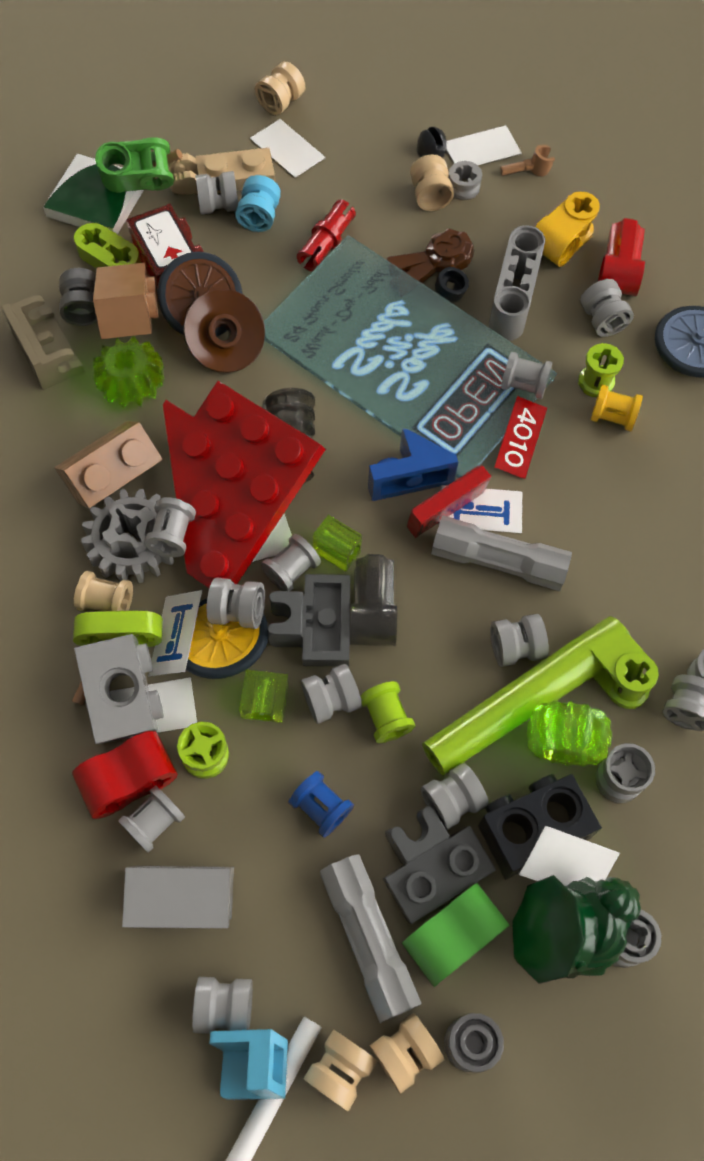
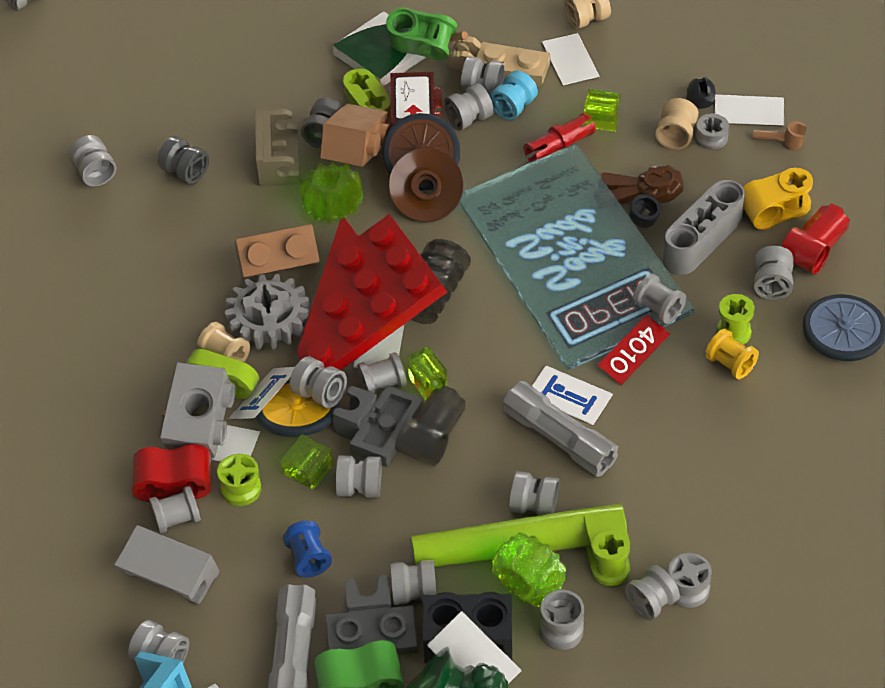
camera: 30 degrees right, 15 degrees down
(170, 527) = (295, 309): light grey bush -> none
(222, 228) = (468, 106): none -> light grey wheel
(355, 188) = (603, 109): none -> clear neon green piece
(387, 712) = (396, 506): lime bush -> none
(420, 468) = (526, 343): blue slope -> none
(448, 500) = (539, 372): red tile -> none

